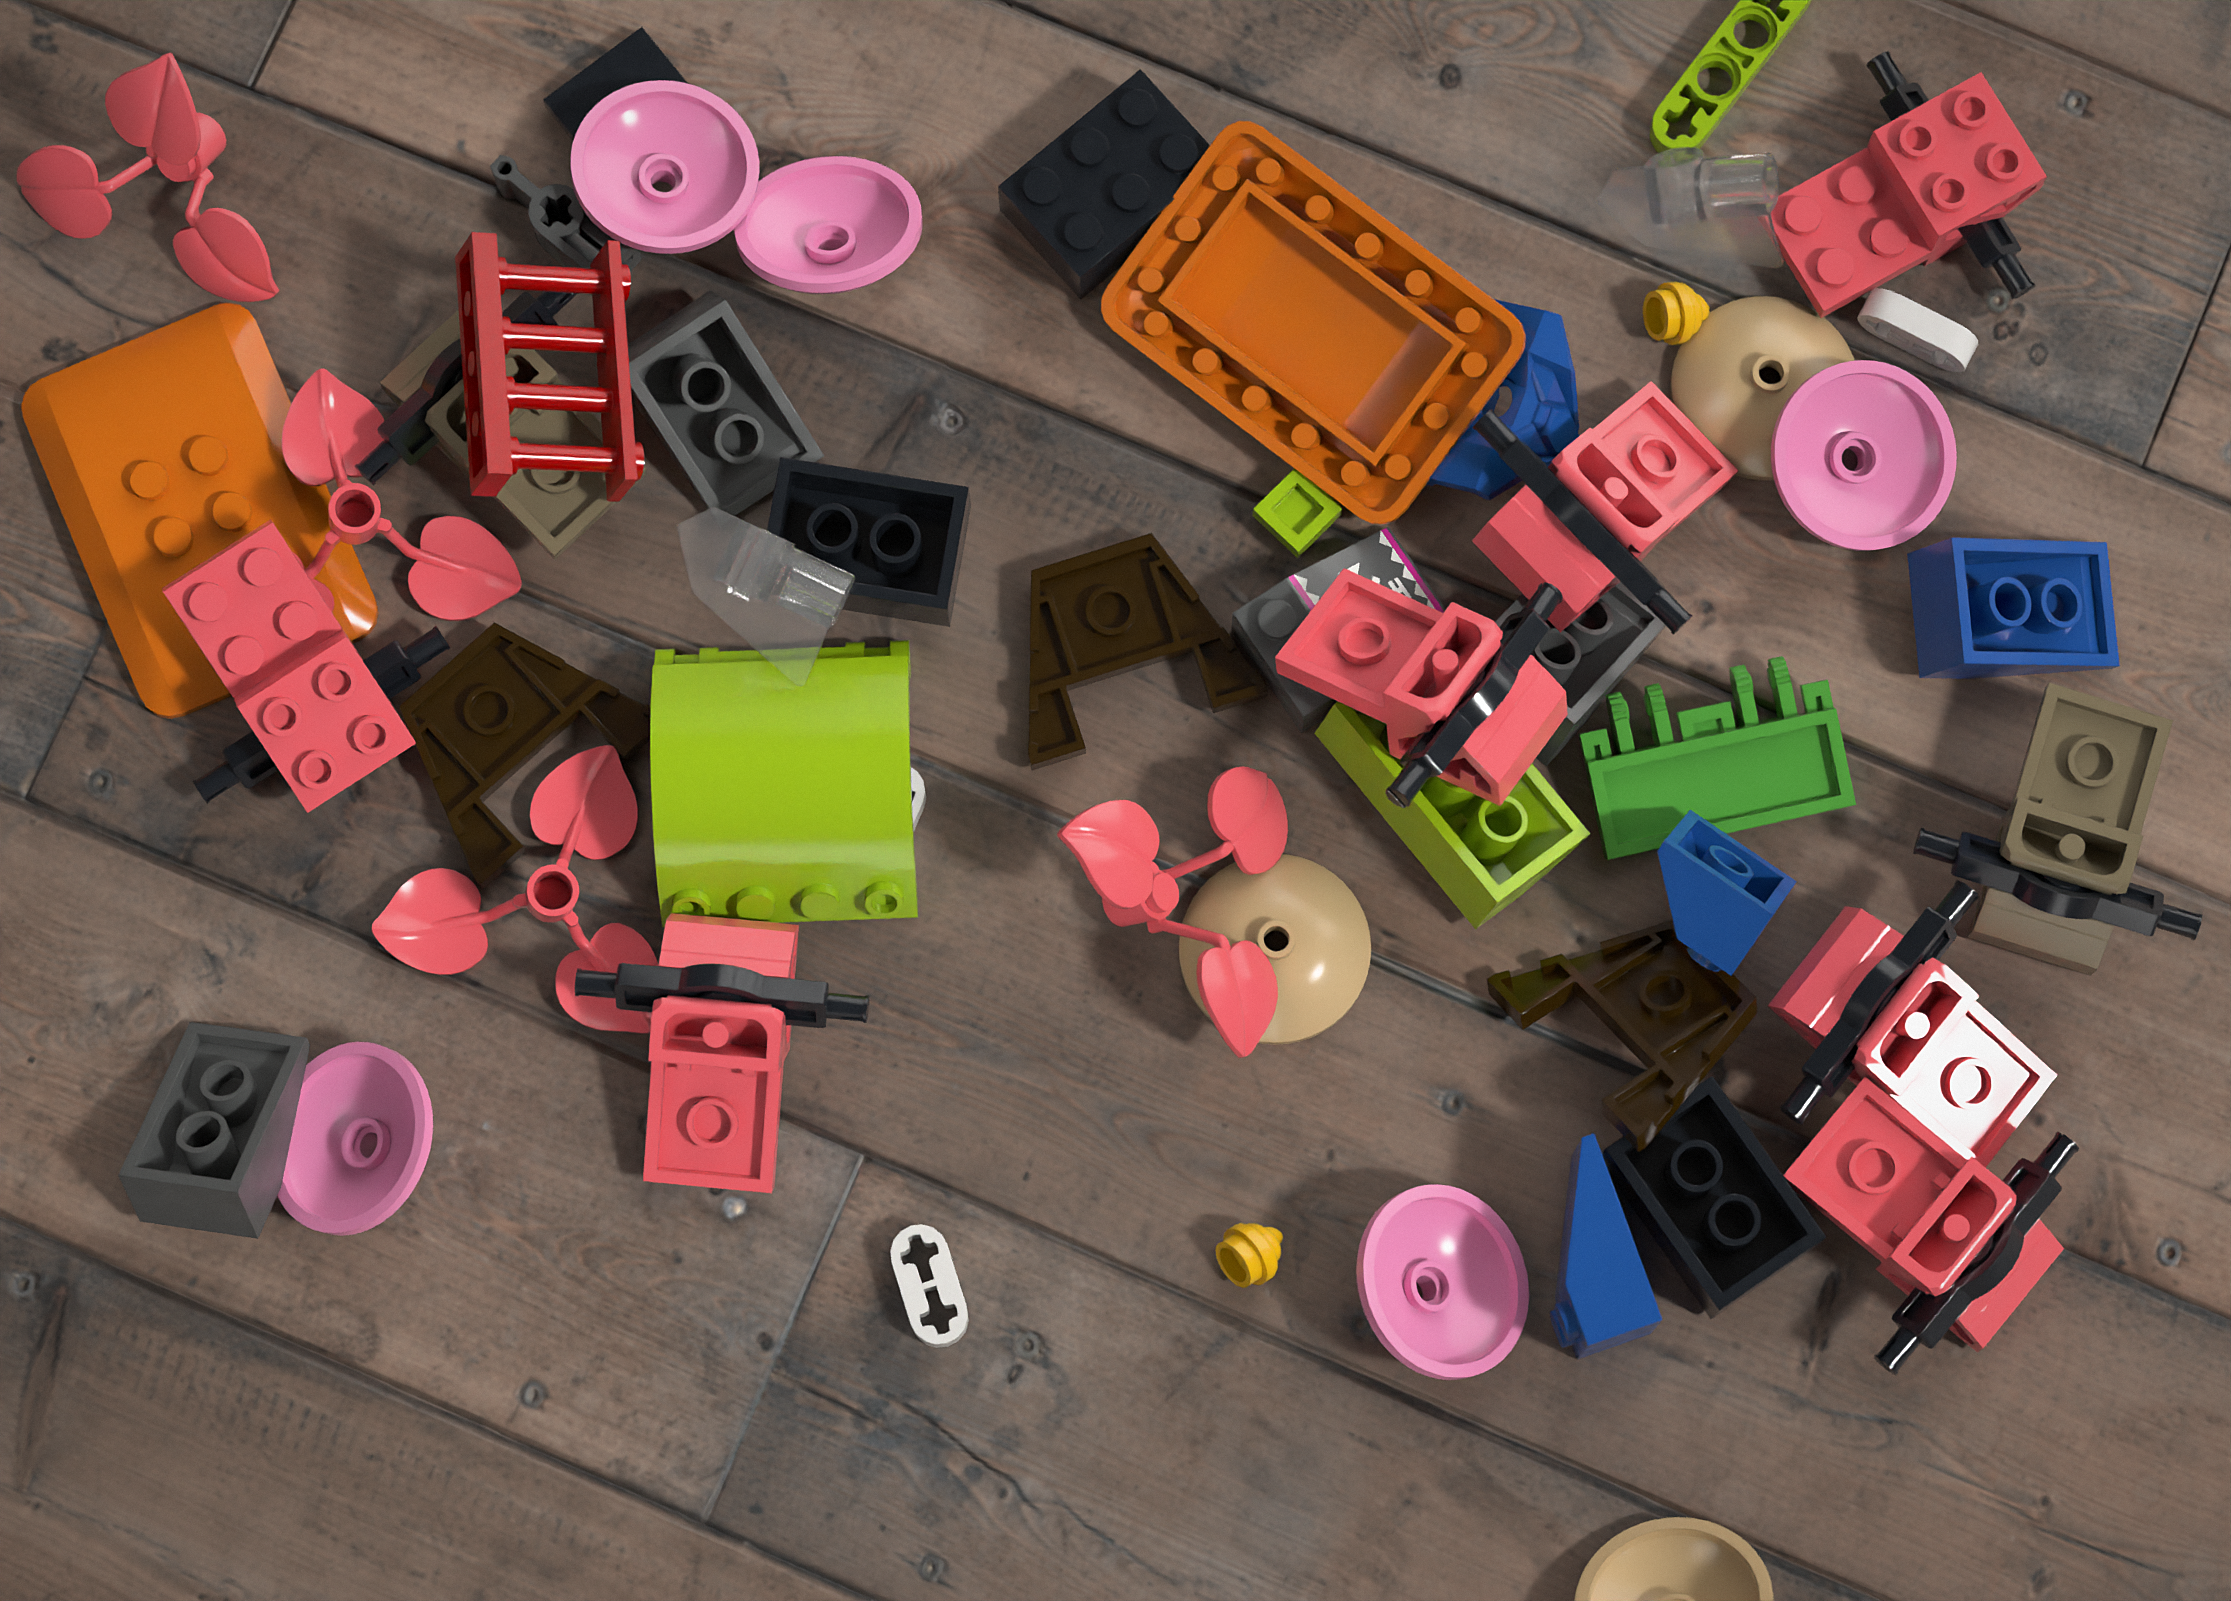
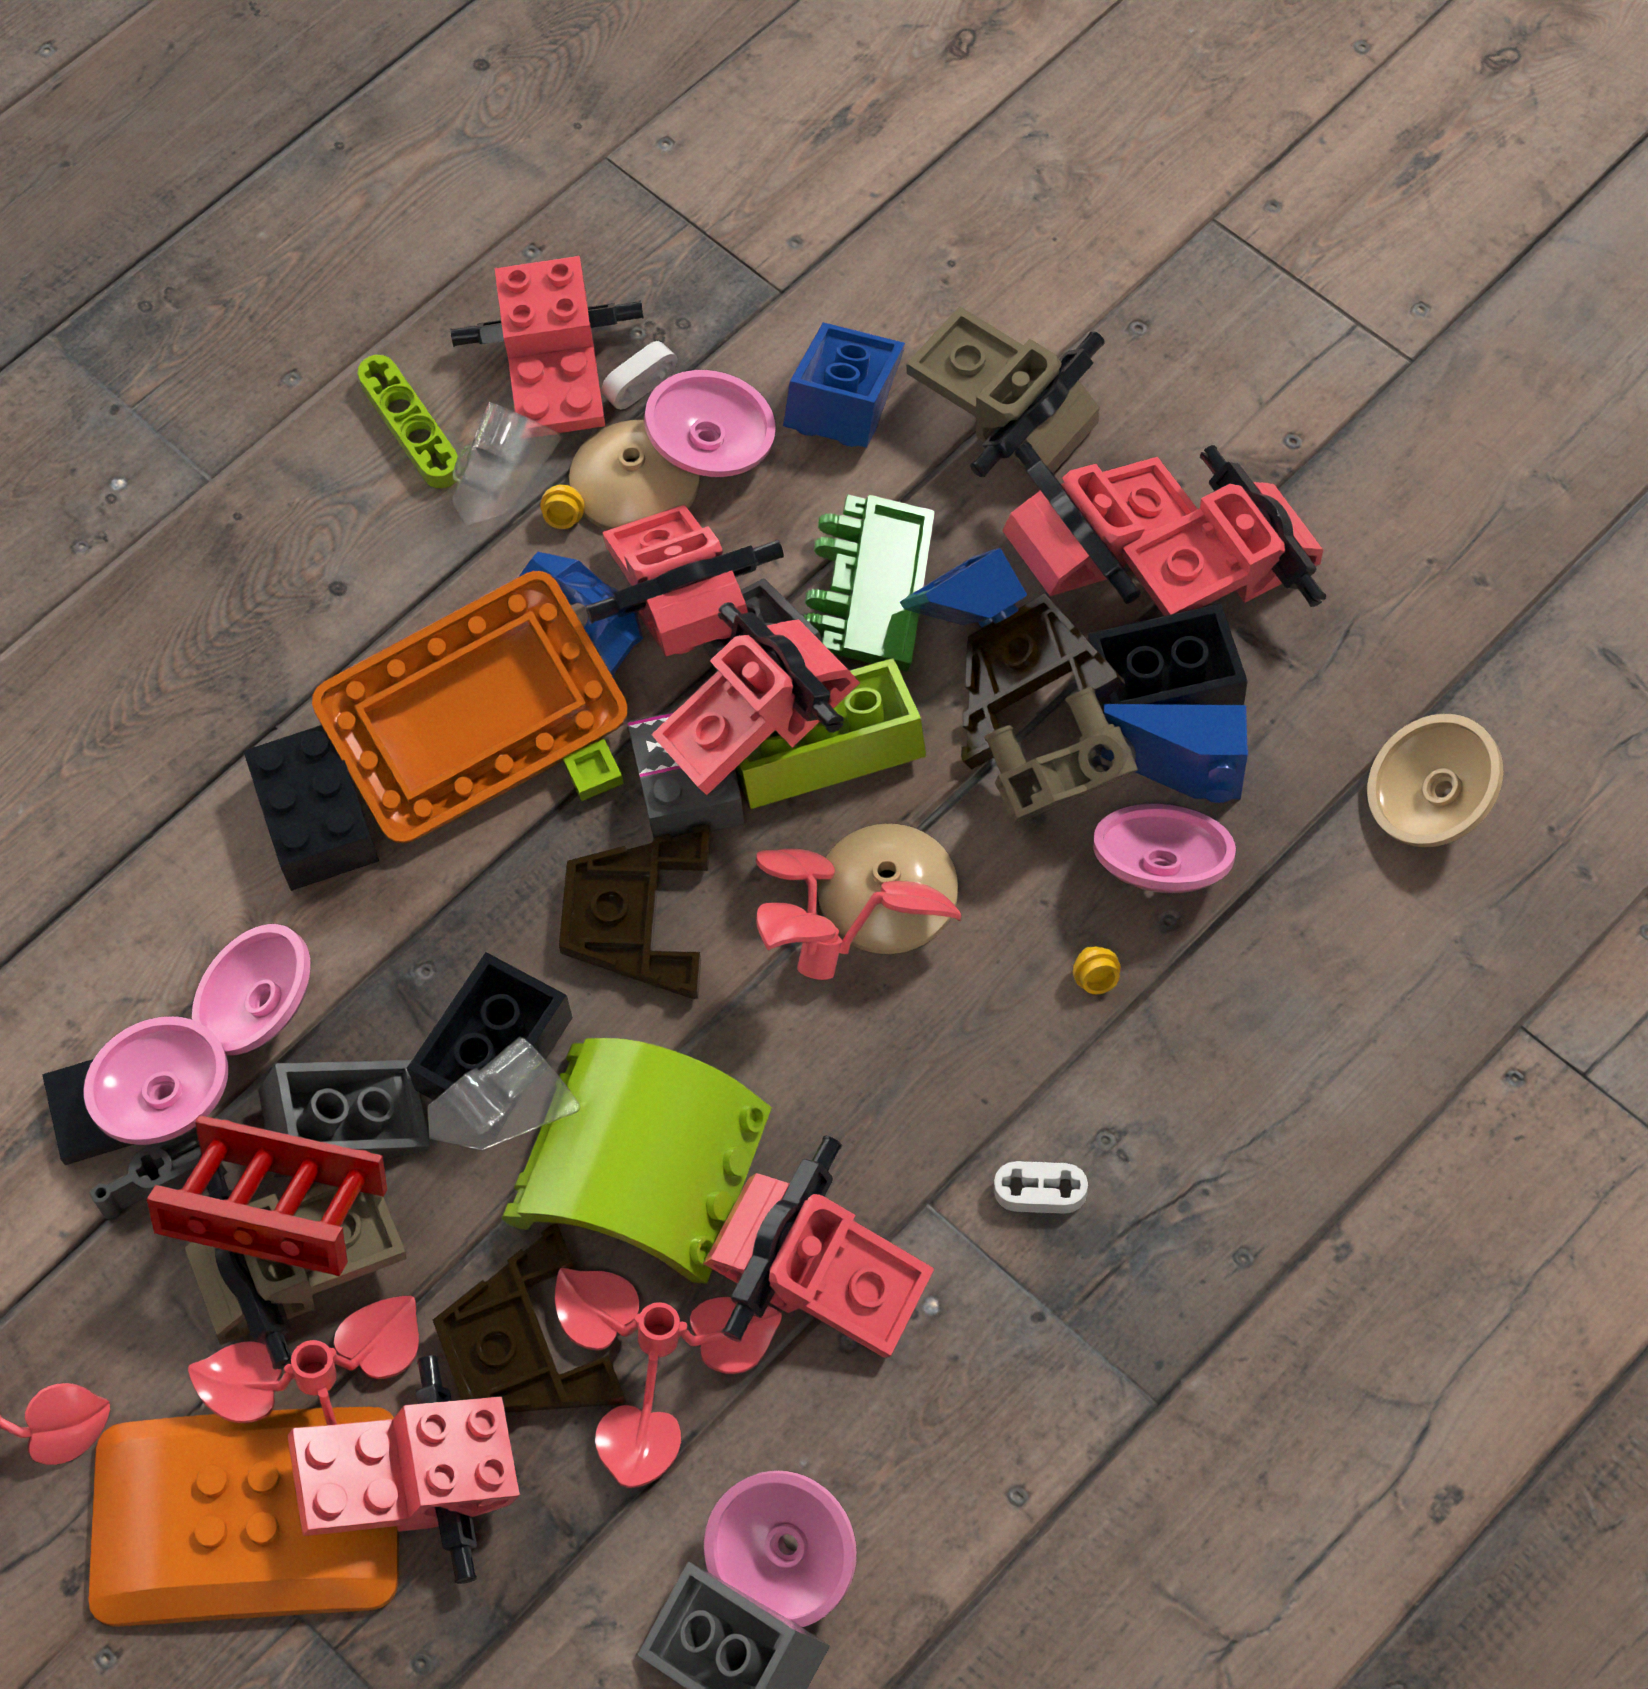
camera: 65 degrees left, 15 degrees down
(1469, 1097) = (1065, 774): none -> dark tan piece

